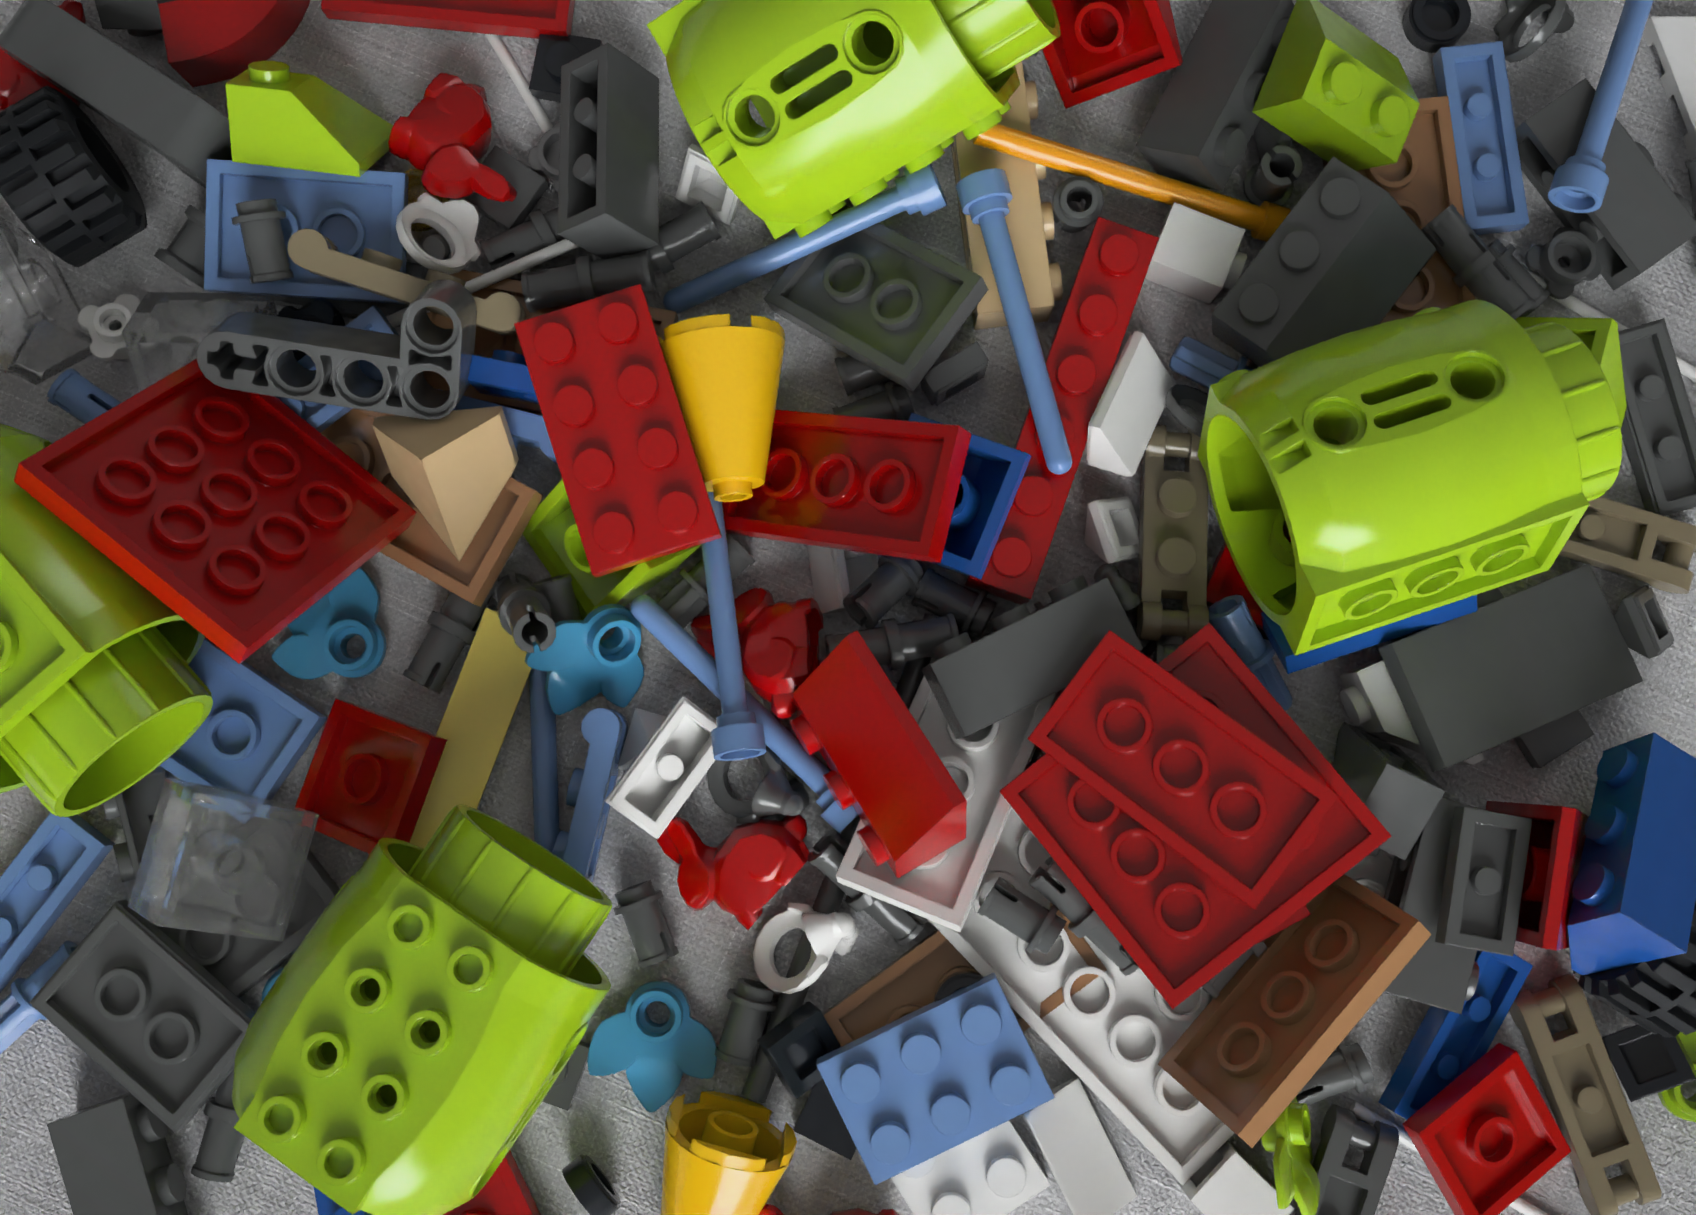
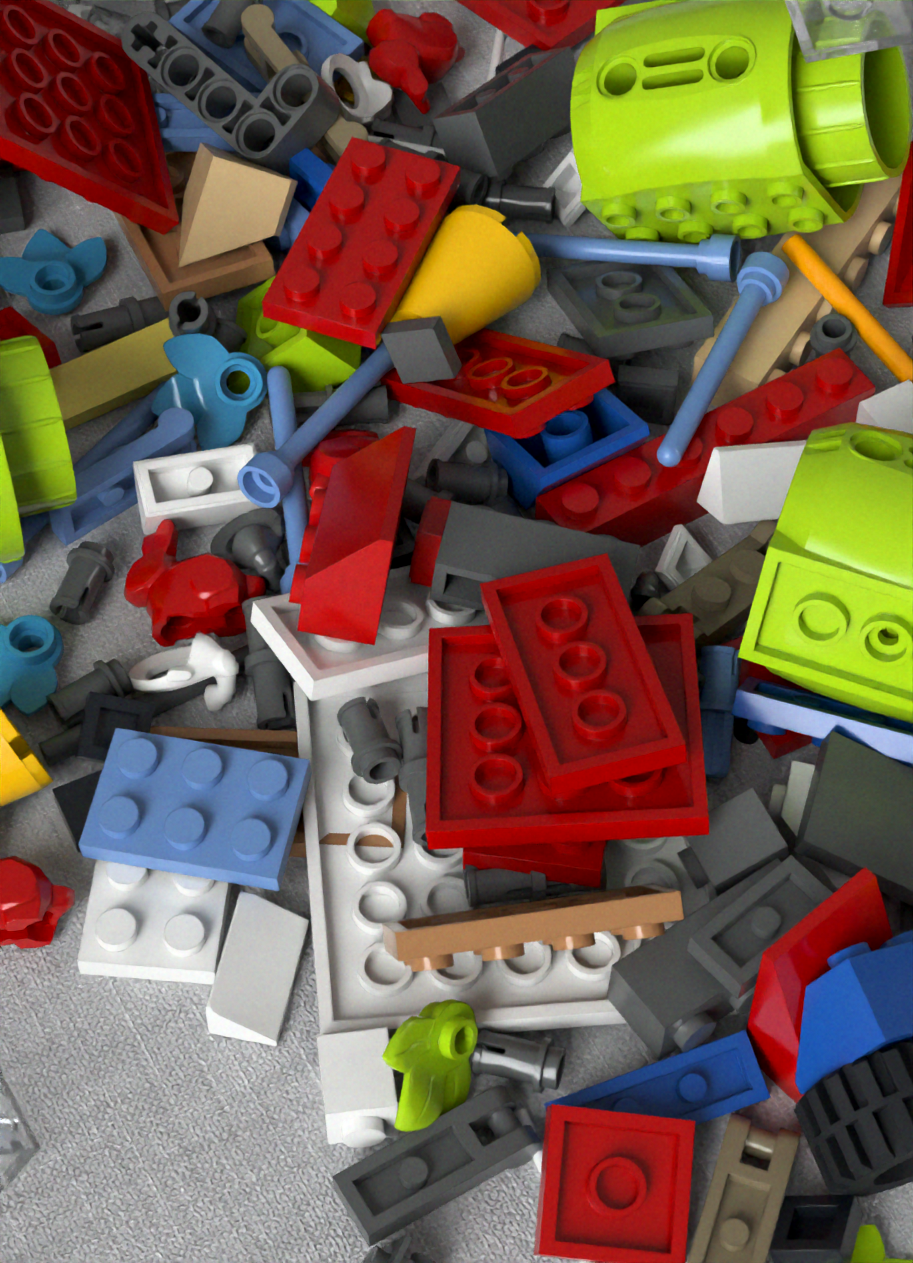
camera: 30 degrees right, 30 degrees down
(758, 504) = (421, 350): none -> dark grey tile
(919, 690) = (428, 540): none -> red tile

